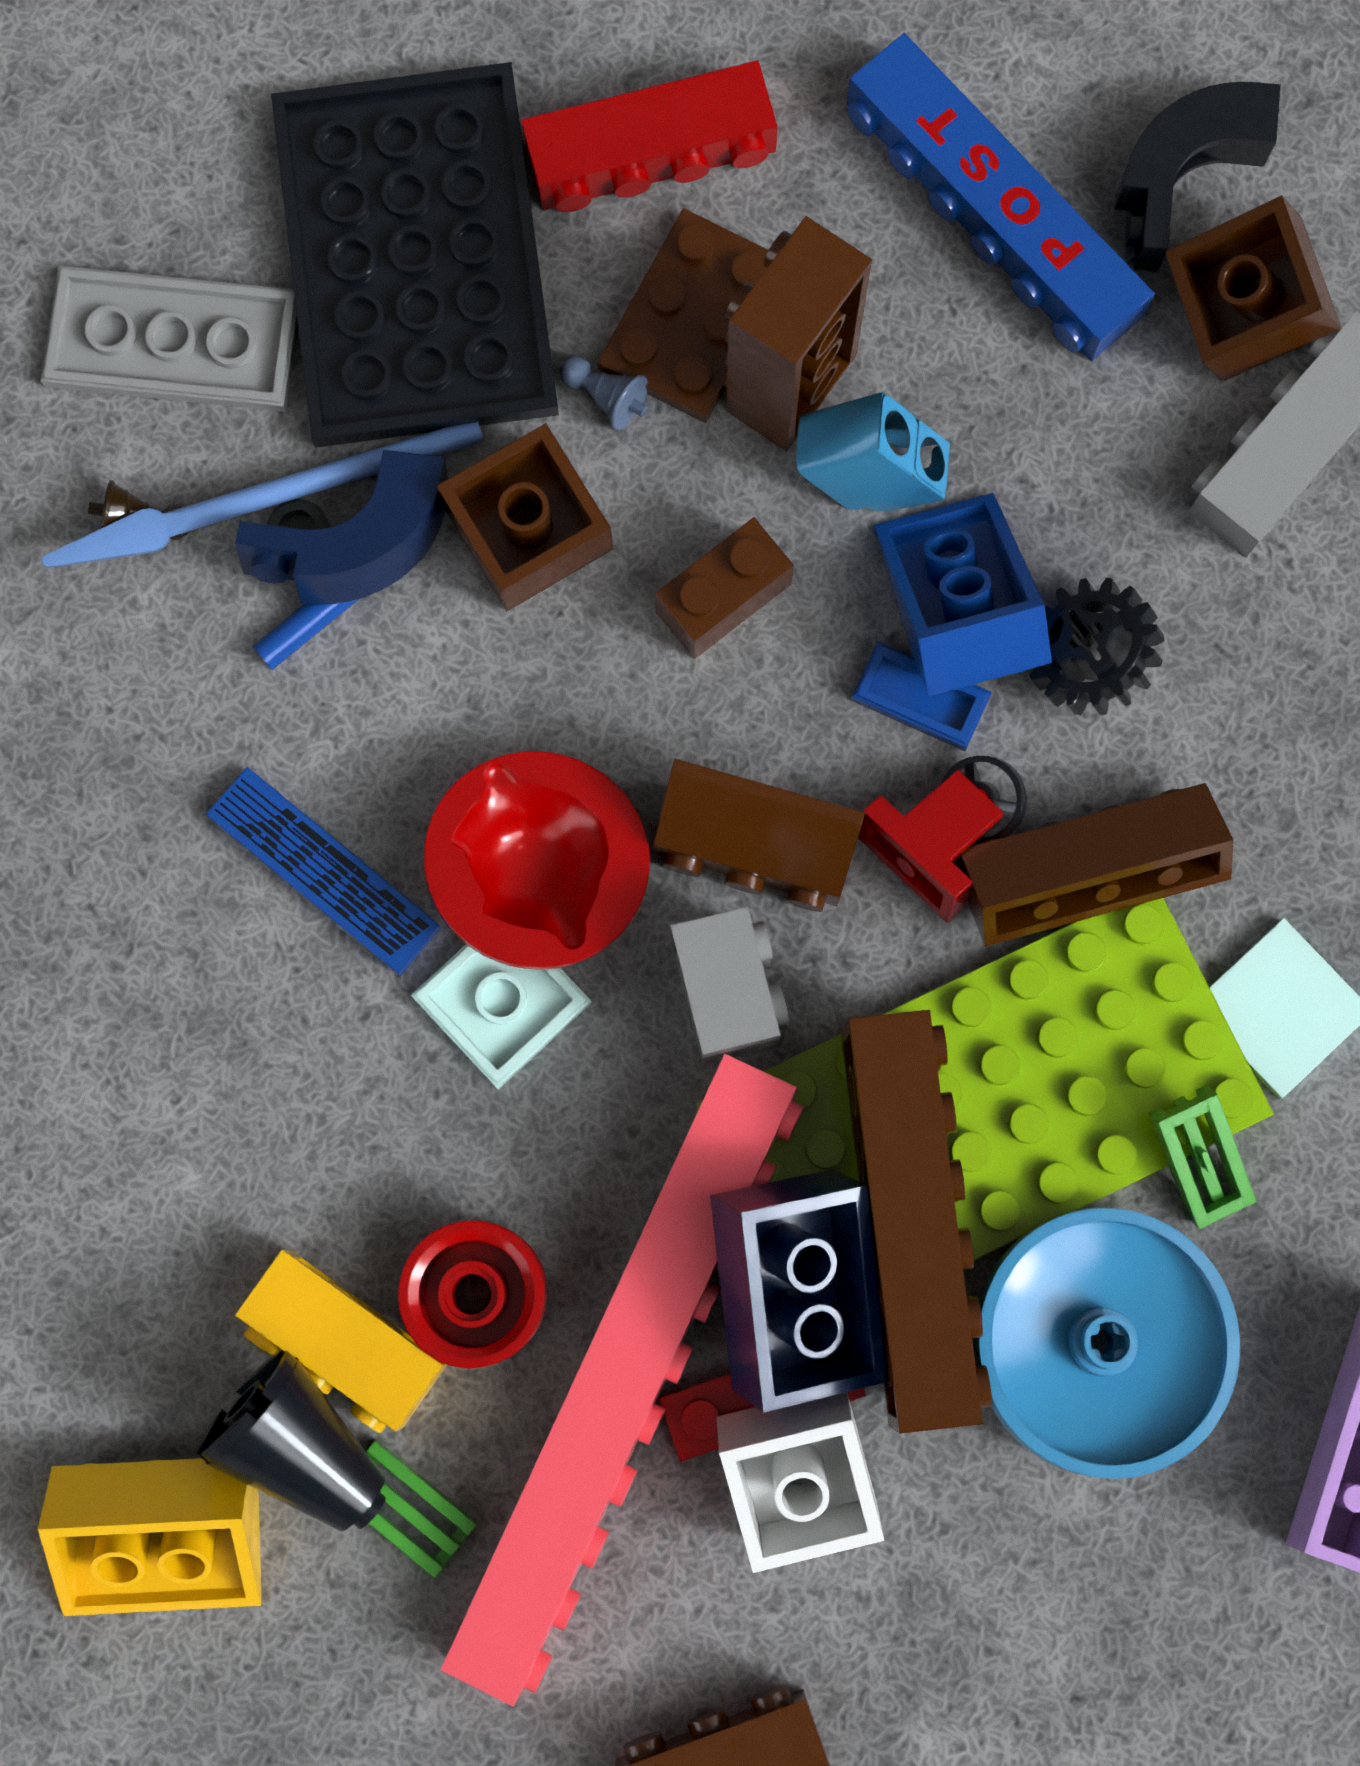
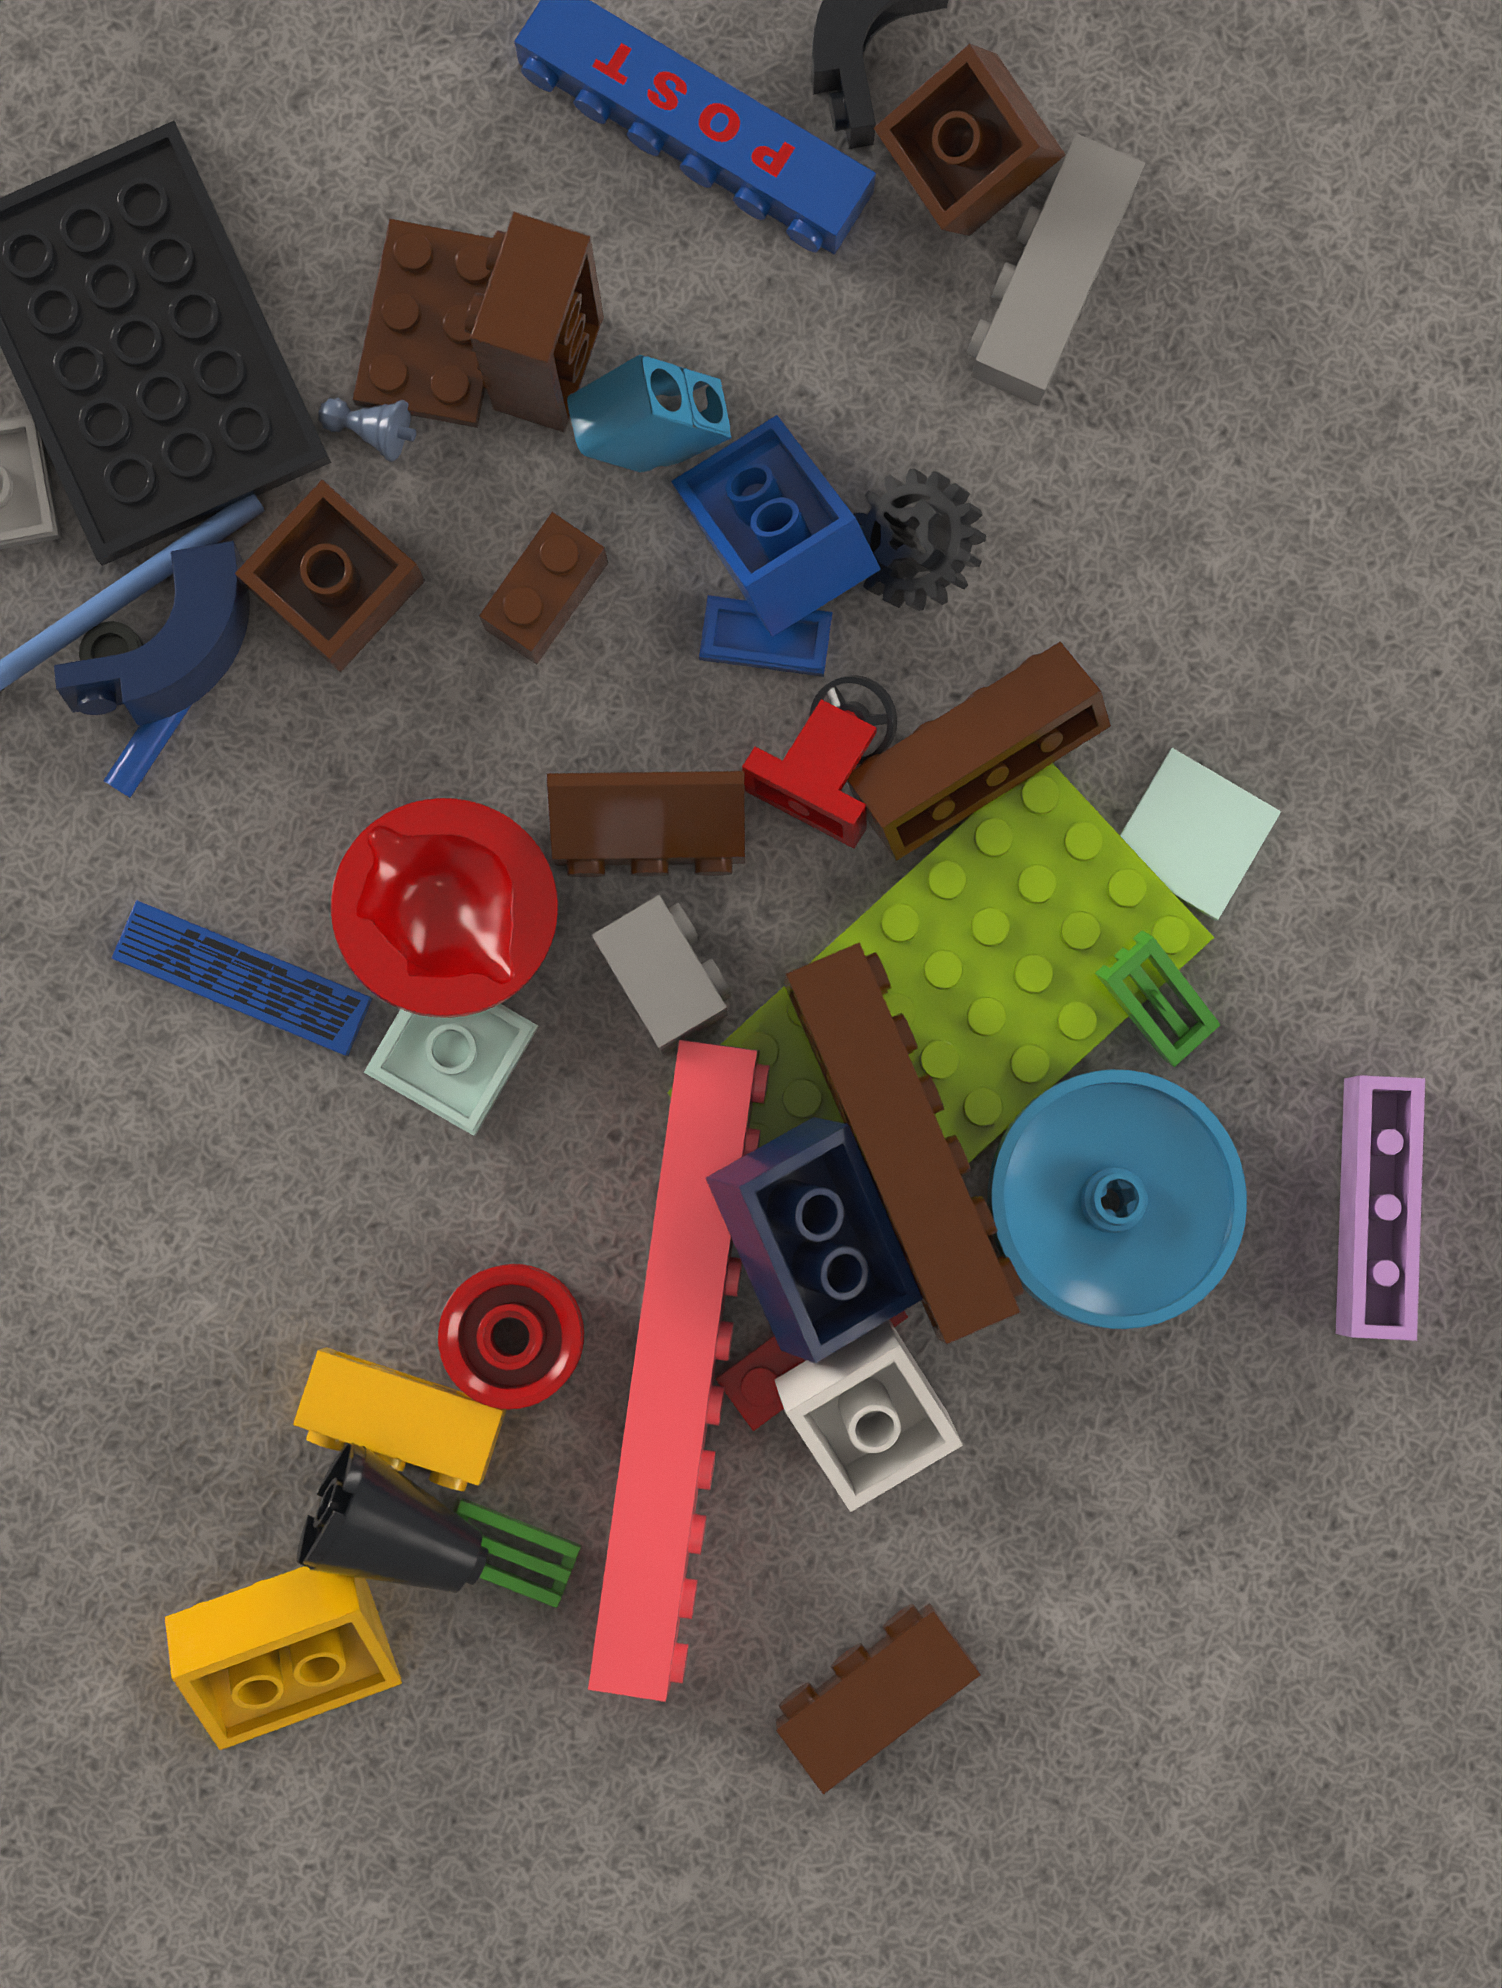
camera: 20 degrees left, 5 degrees up
(651, 137) = (336, 156): red brick -> none

